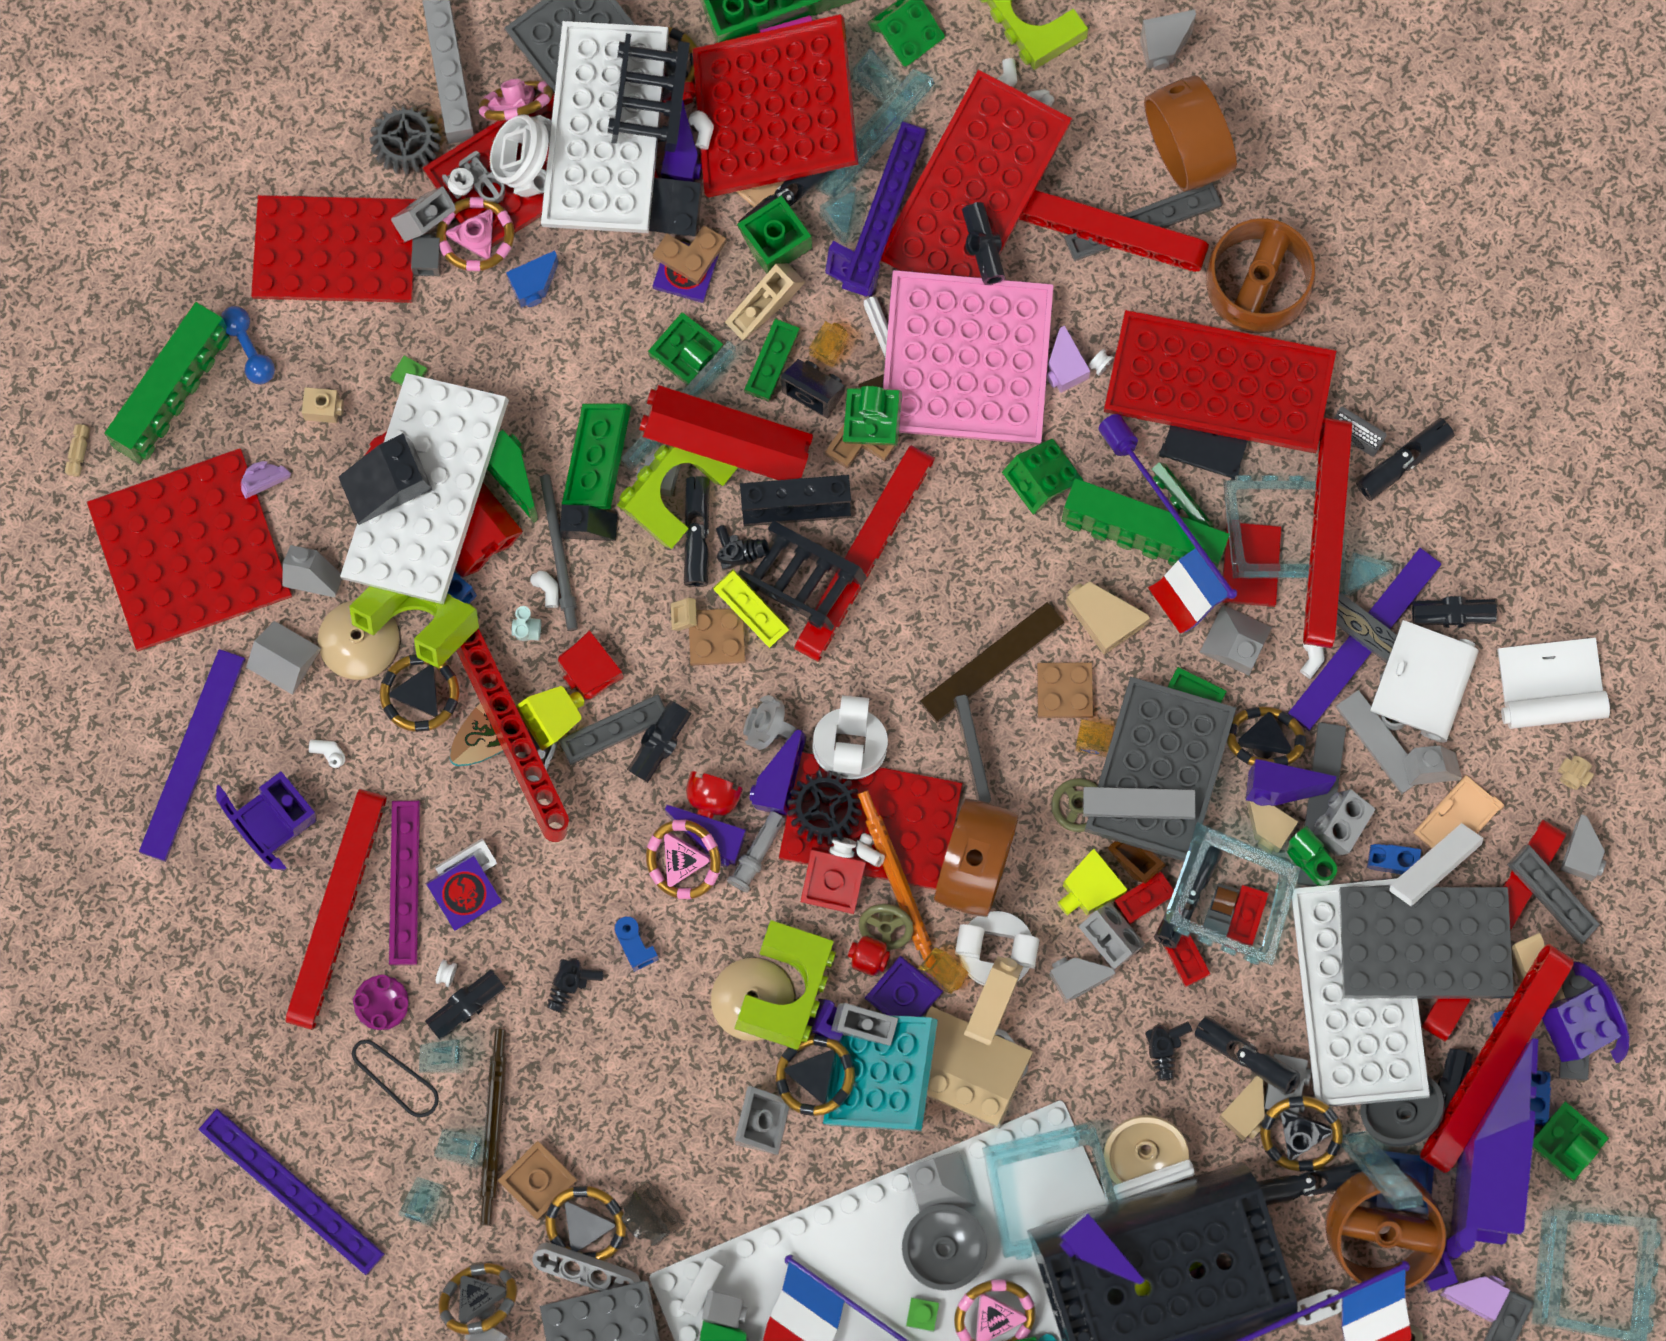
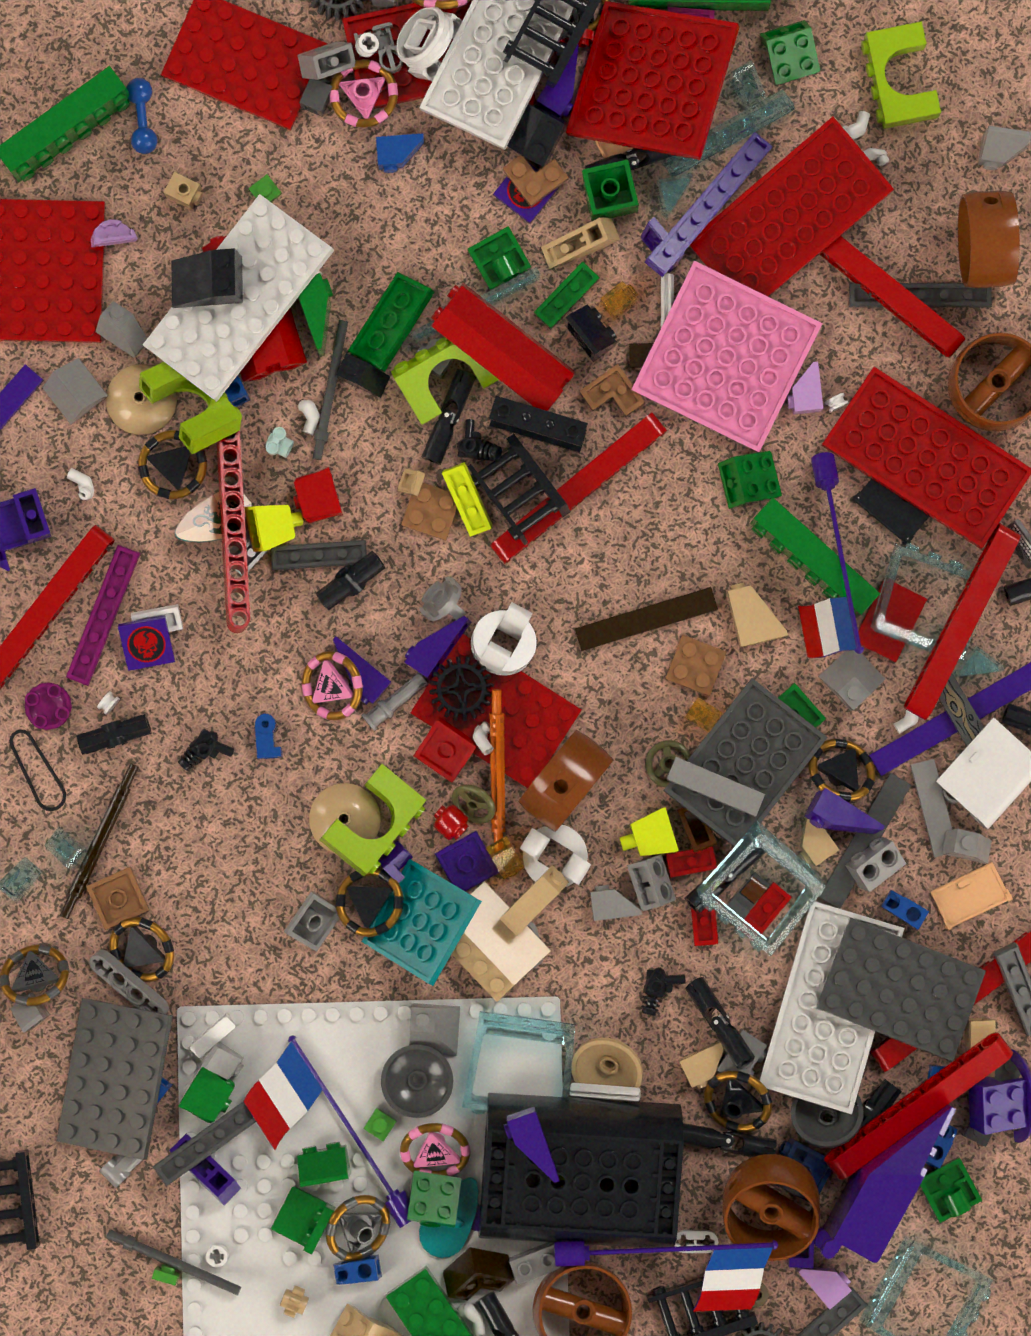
camera: 20 degrees right, 10 degrees up
(441, 1057) = (79, 769): clear light blue slope -> none
(650, 1215) = (195, 962): clear smoke slope -> none
(704, 127) = (587, 75): white arm -> none
(711, 795) = (374, 643): red cylinder -> none
(843, 848) = (463, 728): white bush -> none
(864, 1024) = (422, 879): light grey slope -> none
(872, 416) = (628, 378): green plate -> none
(972, 748) = (600, 687): dark grey tile -> none
(983, 243) = (778, 267): black piece -> none
(1180, 497) = (855, 542): green plate -> none
(1308, 853) = (837, 880): green piece -> none
(1381, 1170) = (786, 1164): clear light blue tile -> none
(1436, 864) = (936, 929): white tile -> none

